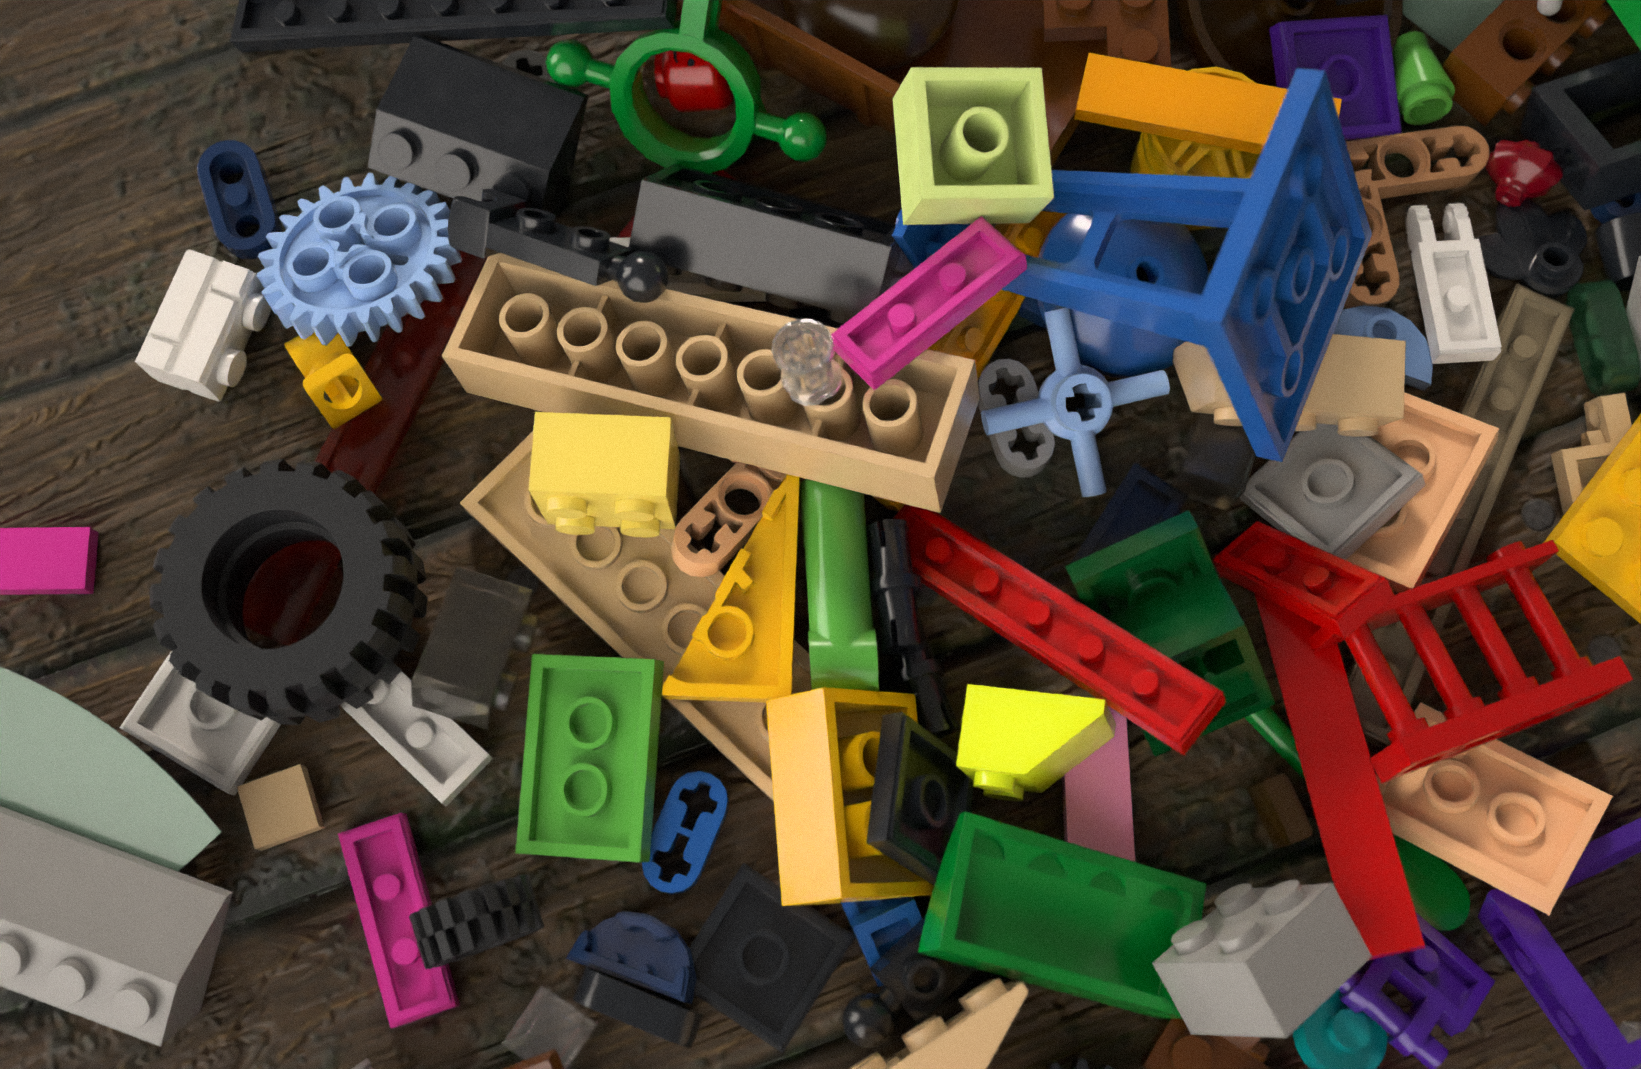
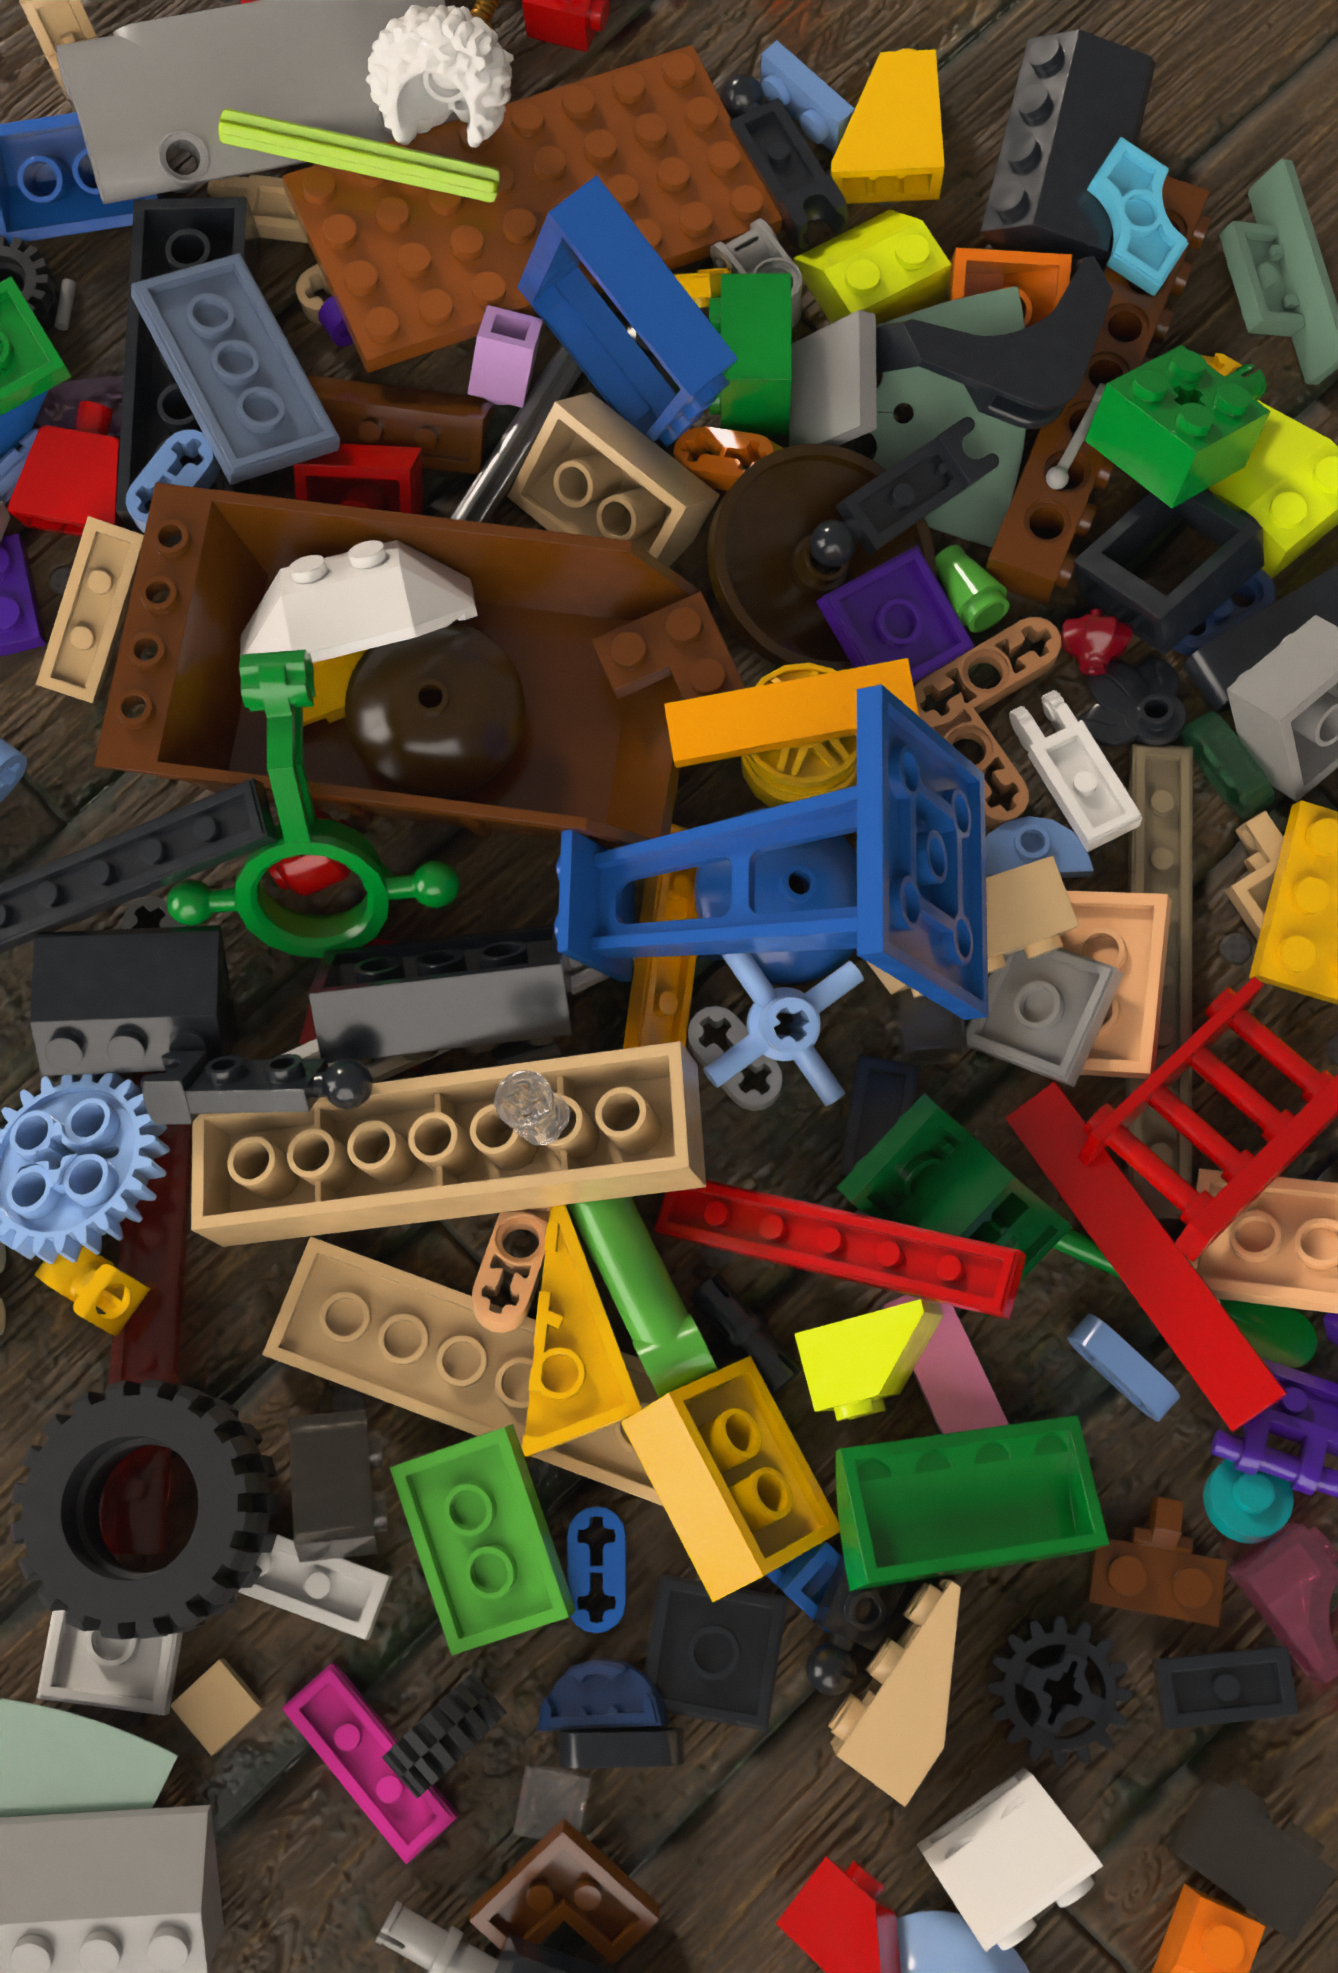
camera: 15 degrees left, 0 degrees up
(605, 472) = (389, 1277): light yellow brick -> none
(895, 587) = (692, 1266): black pin -> none
(915, 796) = (790, 1451): black tile -> none
(928, 302) = (616, 1005): dark pink tile -> none
(972, 145) = (597, 846): yellowish green brick -> none
(1262, 842) = (1123, 1367): none -> medium blue beam
(1262, 959) = (1151, 1467): light grey brick -> none
(1280, 811) = (1118, 1316): dark brown tile -> none
(1303, 578) = (1050, 1106): red tile -> none

